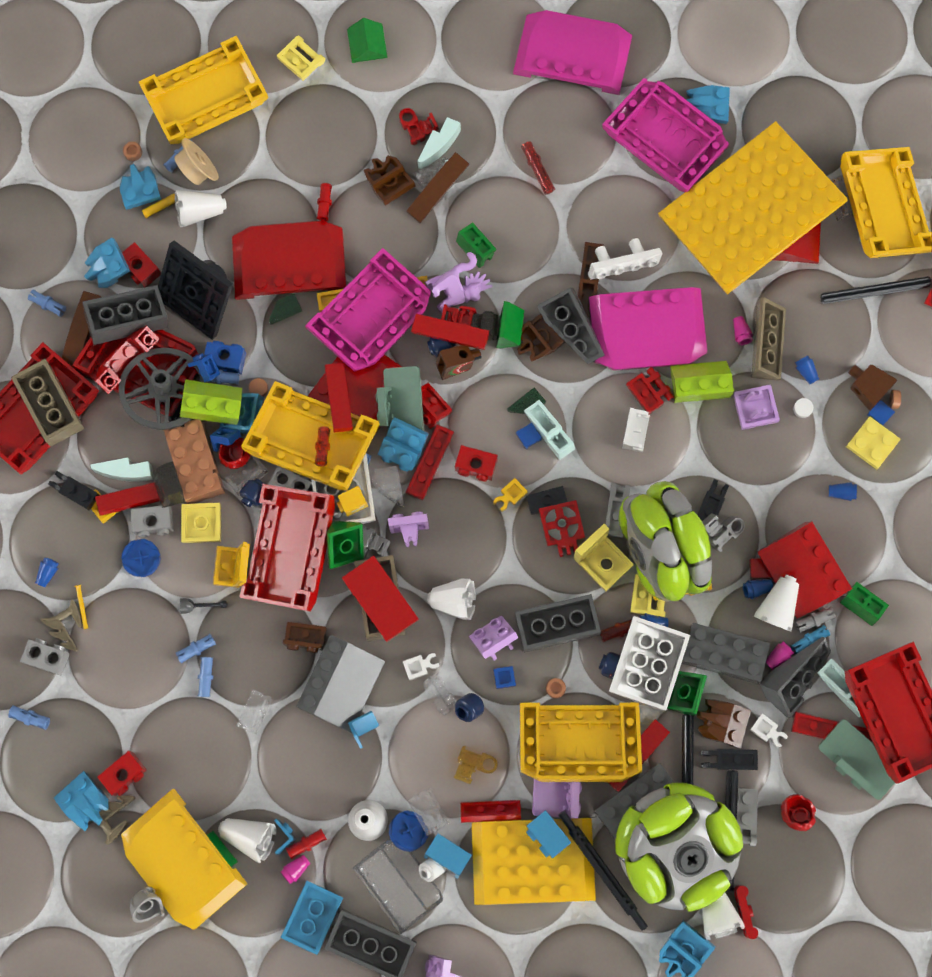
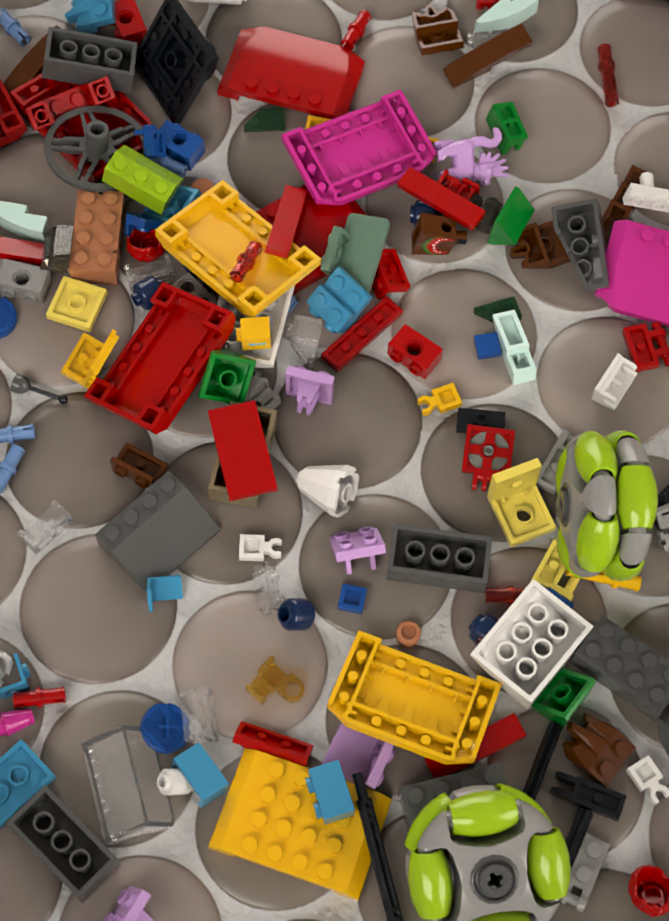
camera: 15 degrees right, 10 degrees down
(376, 824) = (123, 699): white cone -> none

